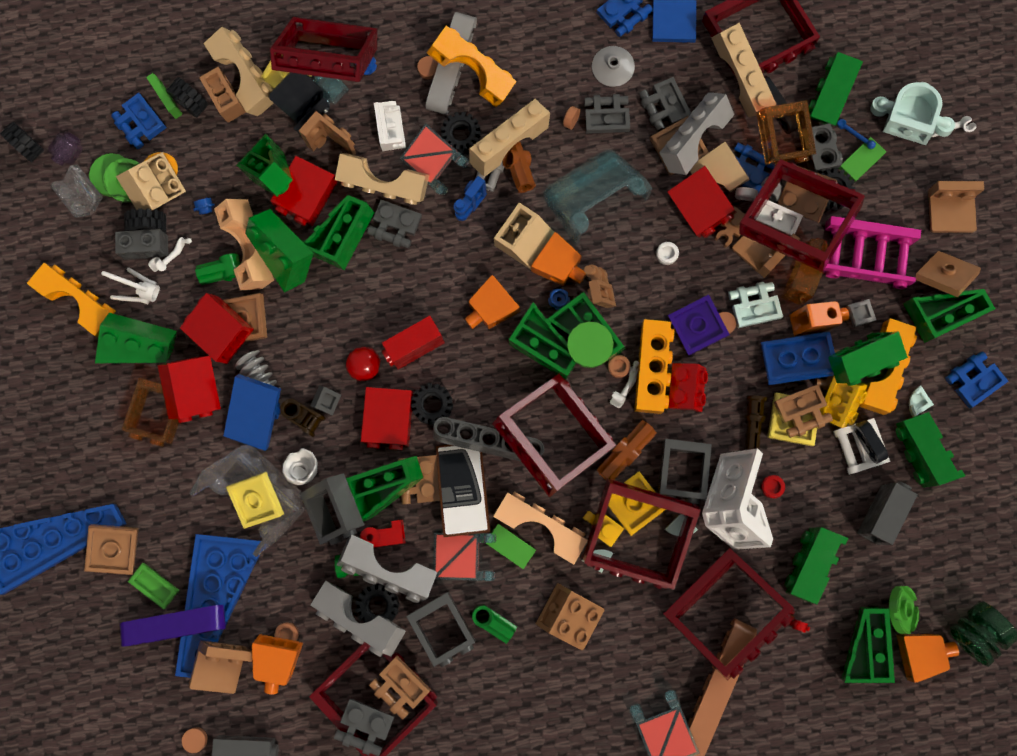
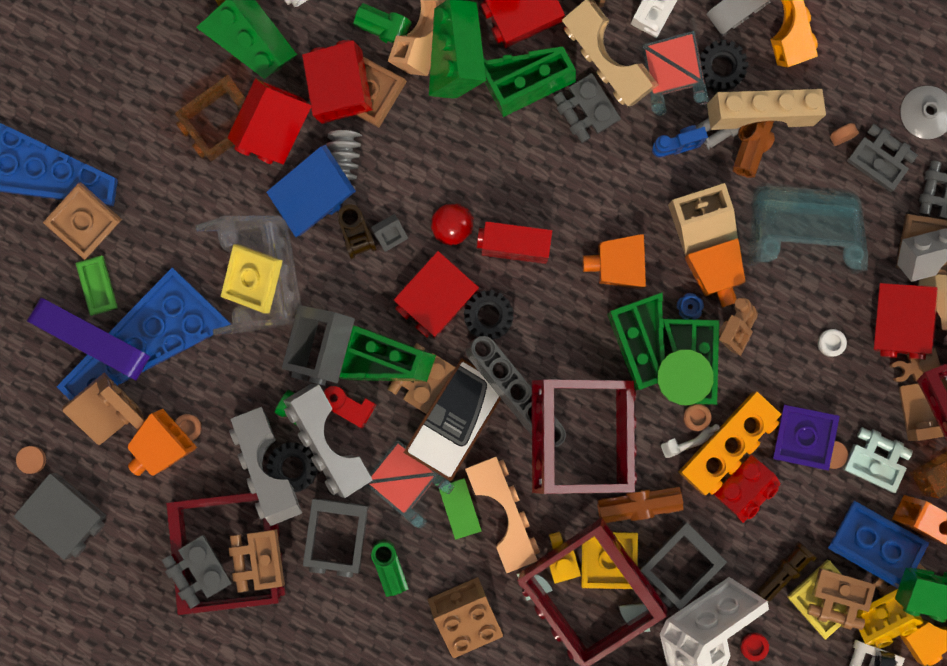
camera: 30 degrees right, 5 degrees up
(295, 473) = (309, 284): white hair -> none

